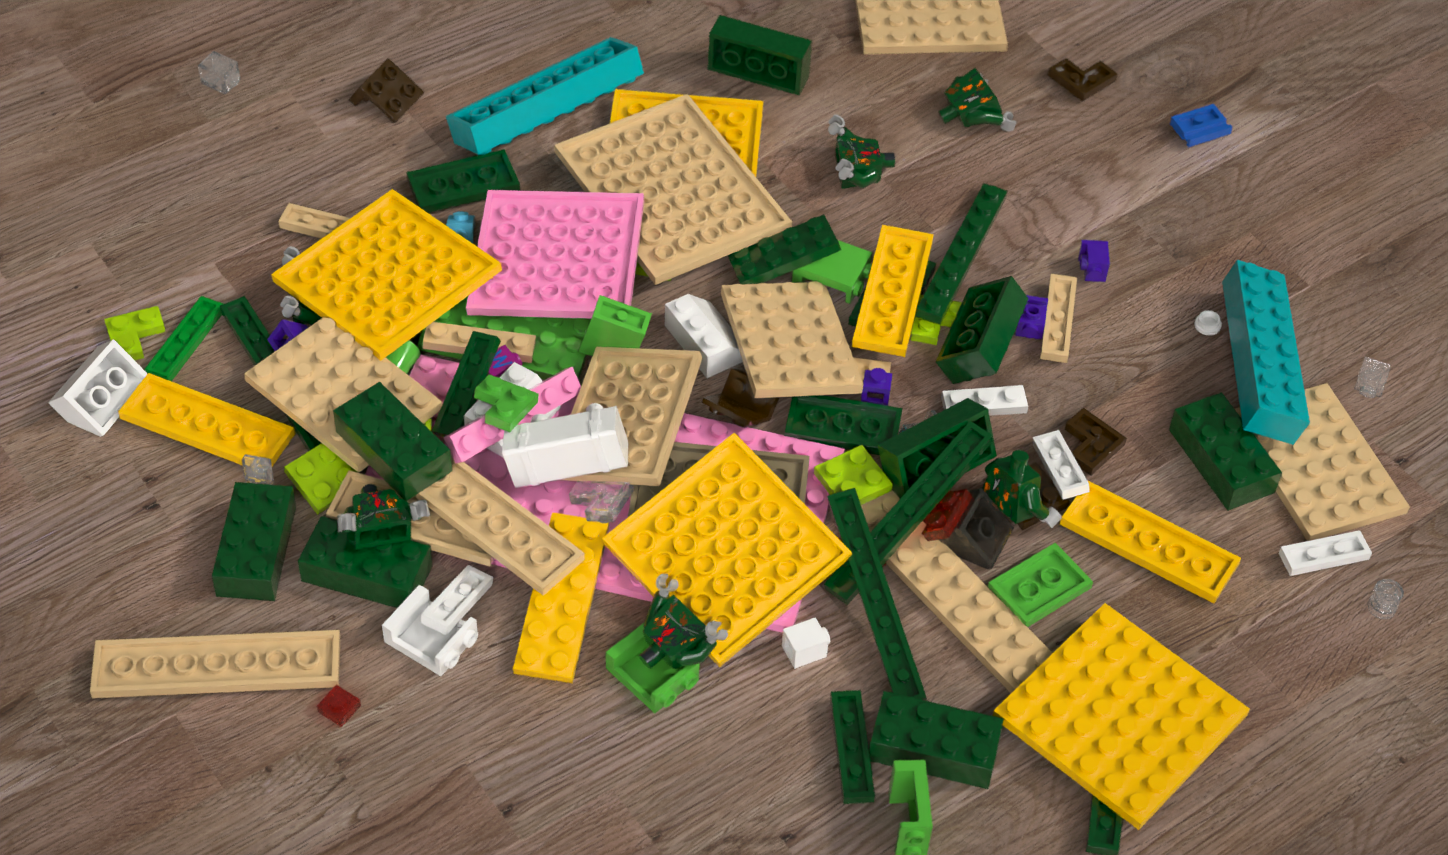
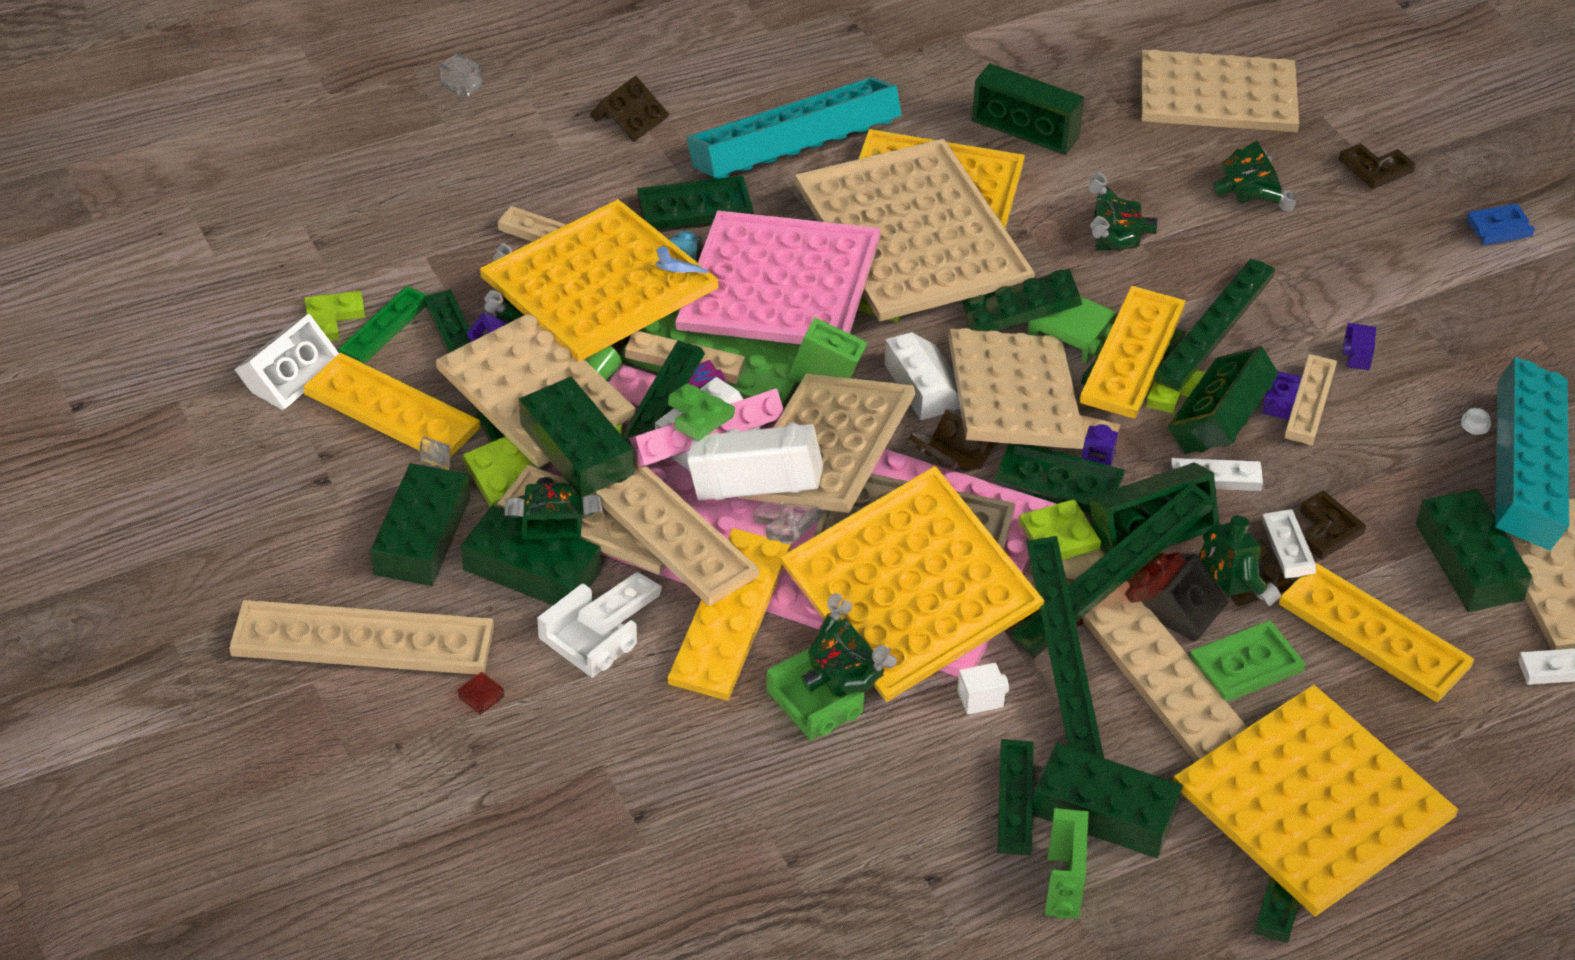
camera: 10 degrees right, 5 degrees down
(457, 253) = (674, 265): none -> medium blue bar

